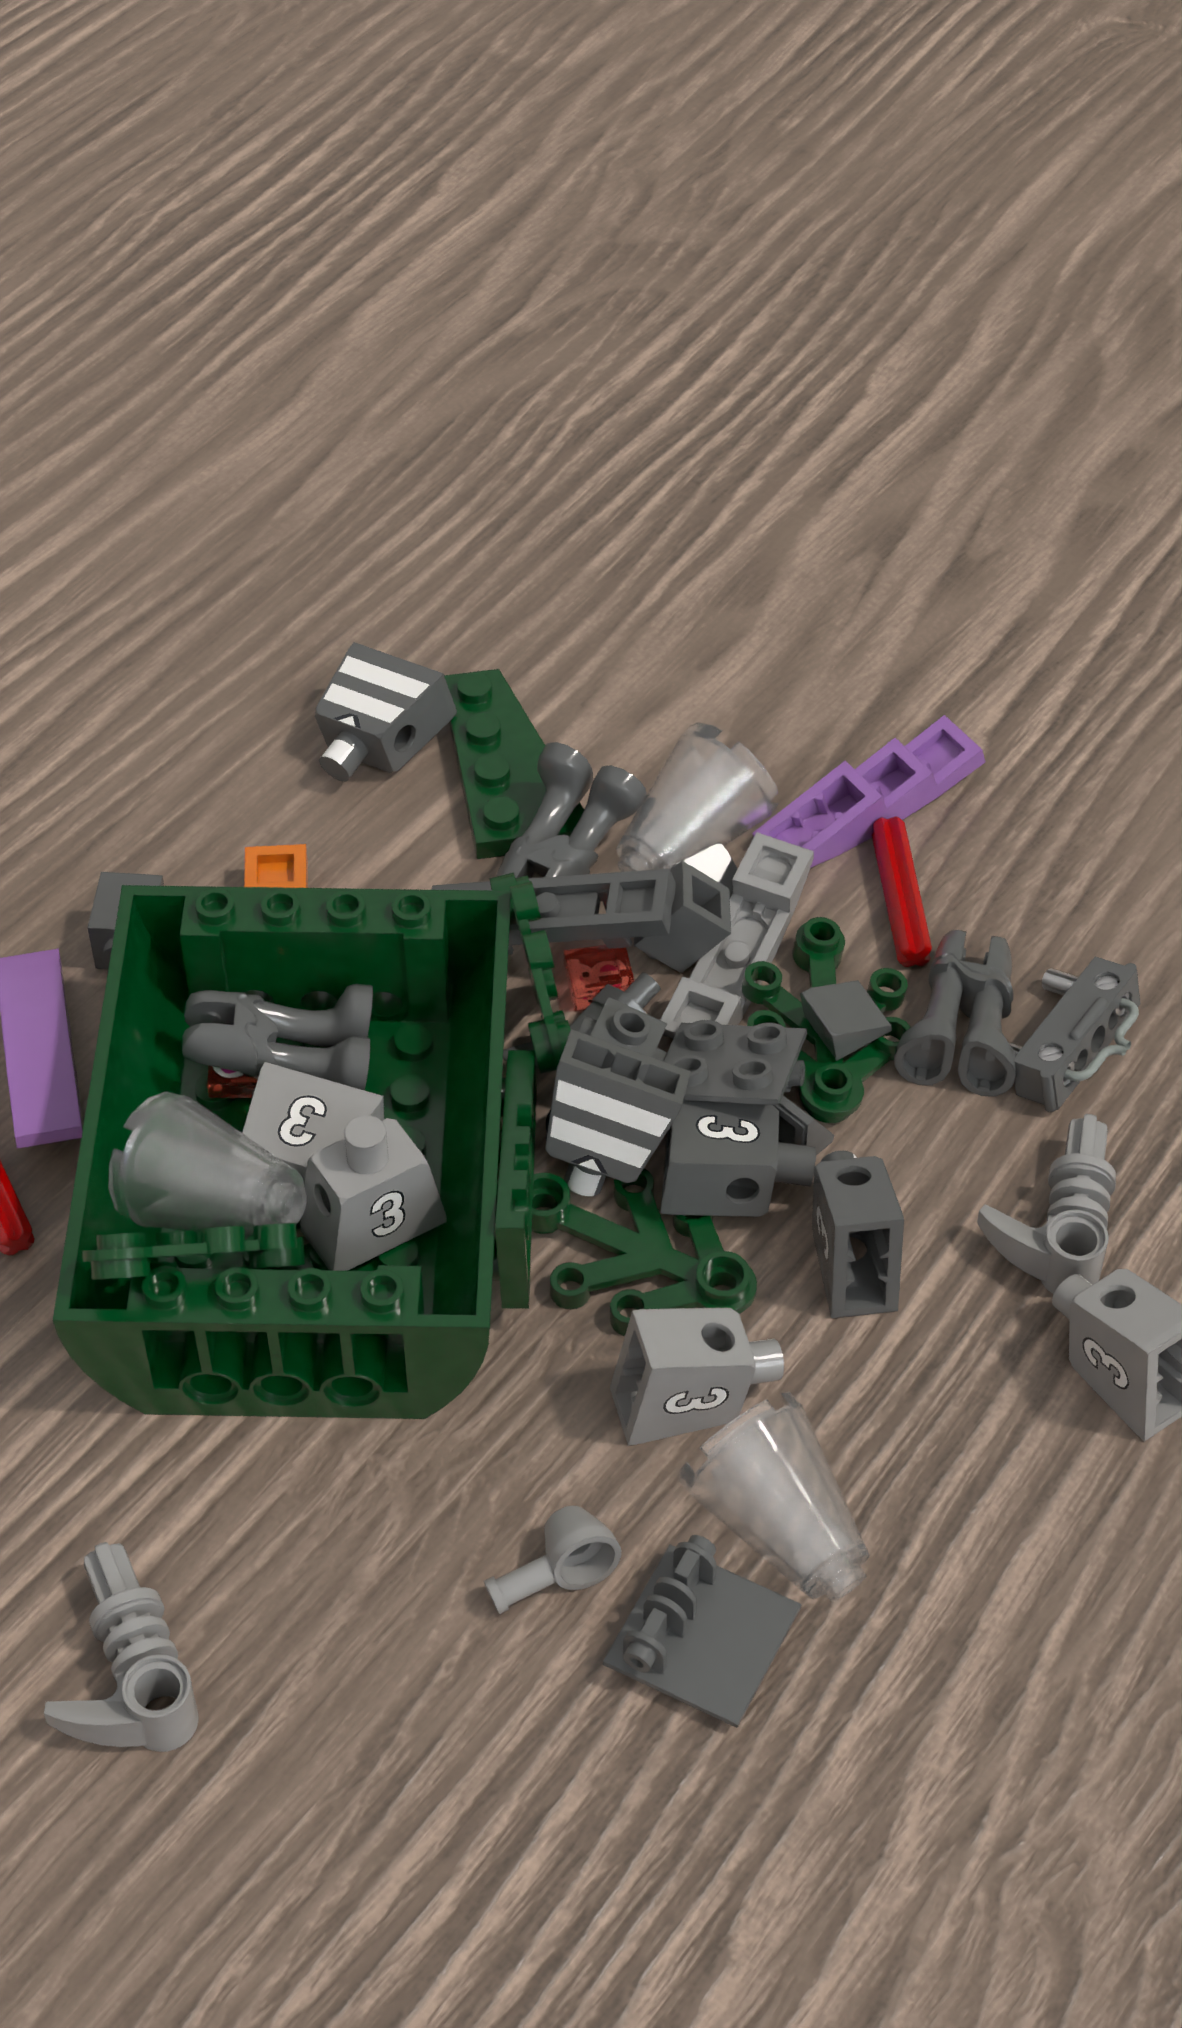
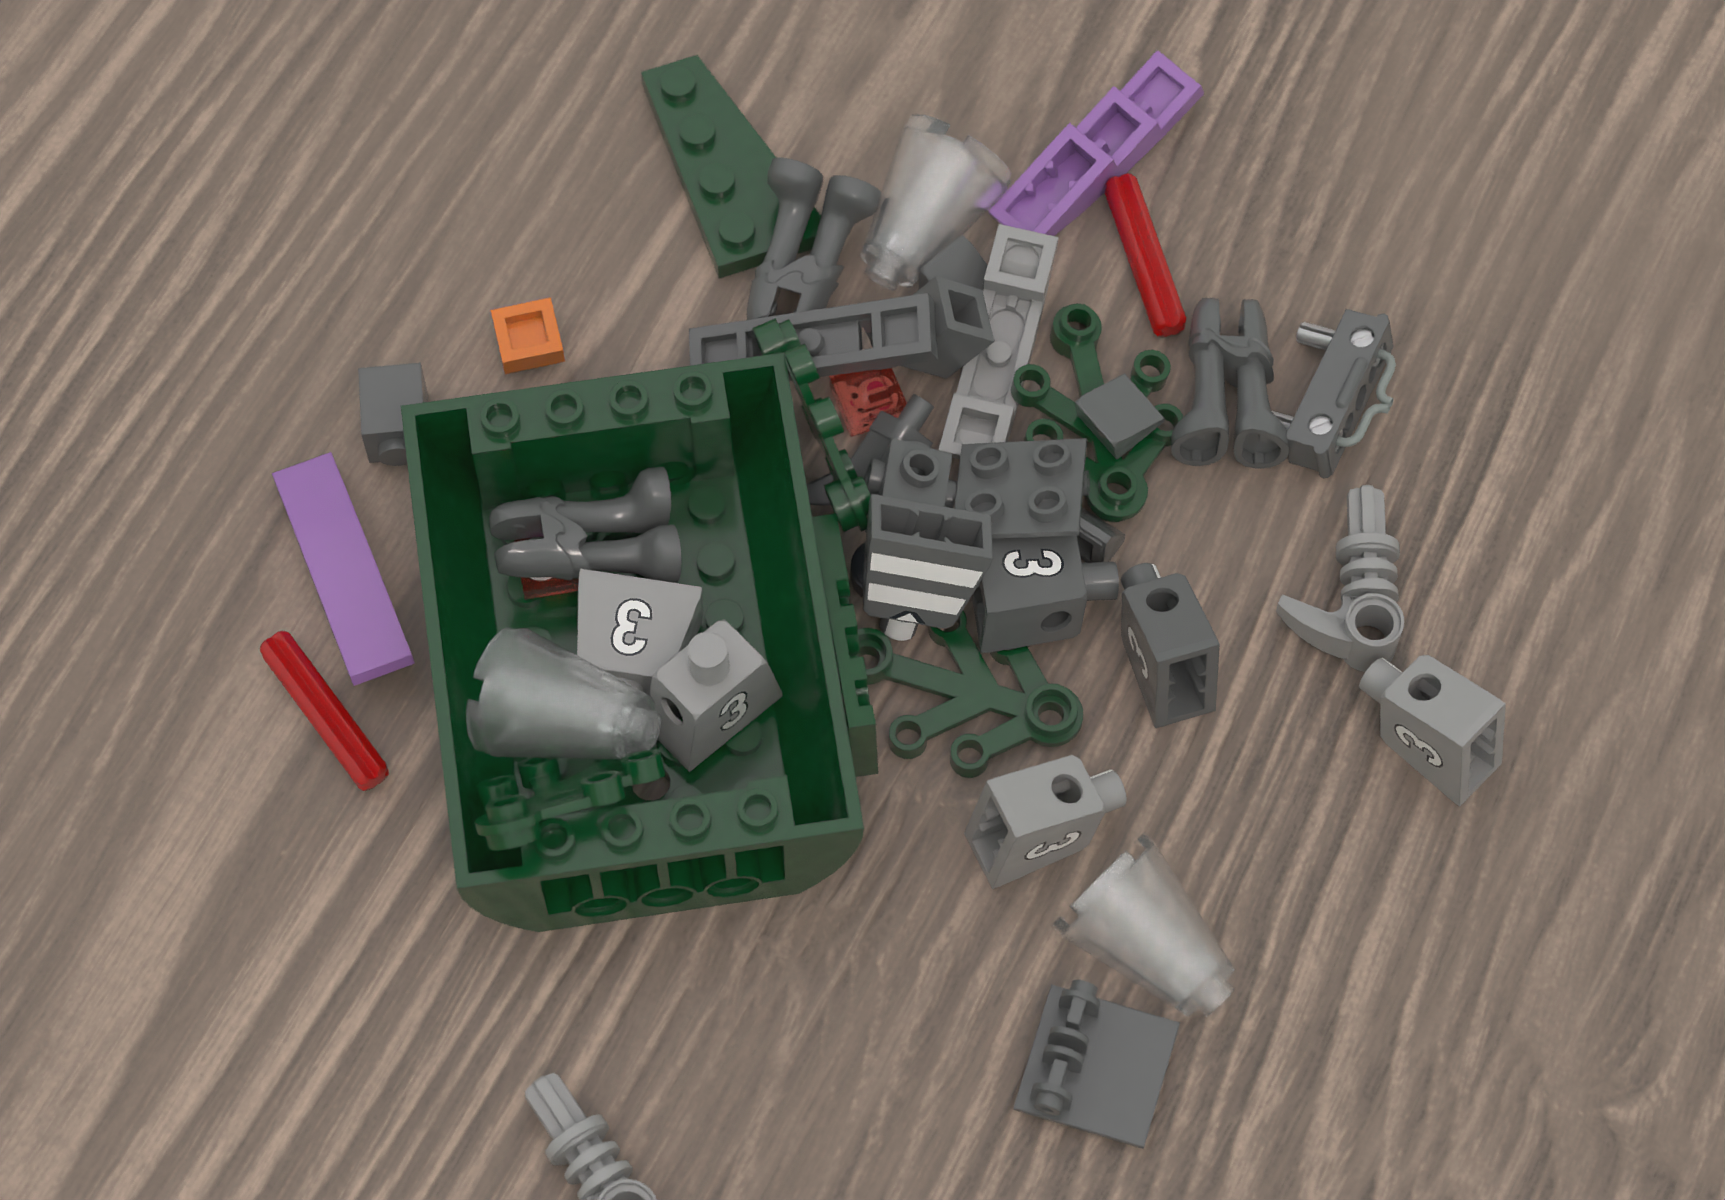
camera: 10 degrees left, 15 degrees up
(380, 711) = (589, 131): dark grey torso -> none
(577, 1557) = (969, 1009): light grey bar -> none

